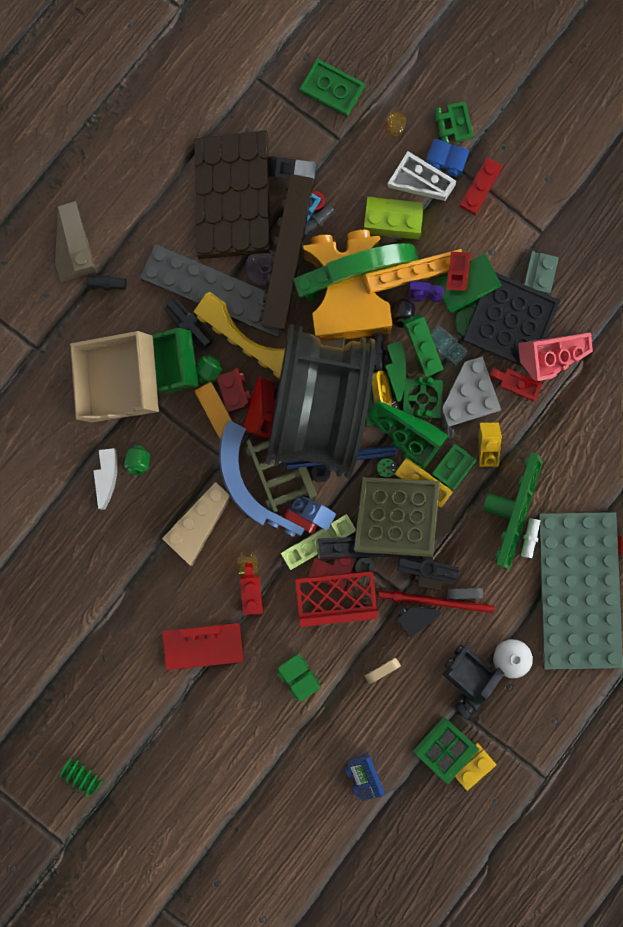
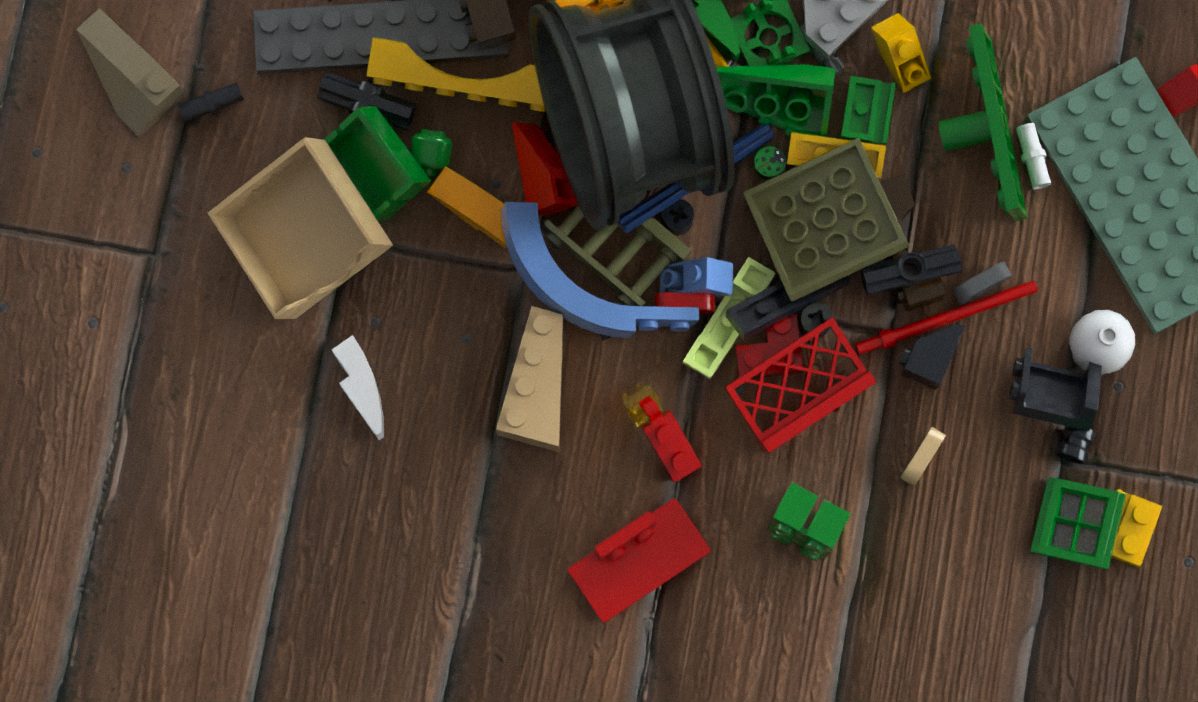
camera: 30 degrees left, 5 degrees down
(137, 460) = (395, 338): green head -> none
(233, 391) = (485, 163): red bracket -> none
(365, 777) = (982, 622): blue slope -> none

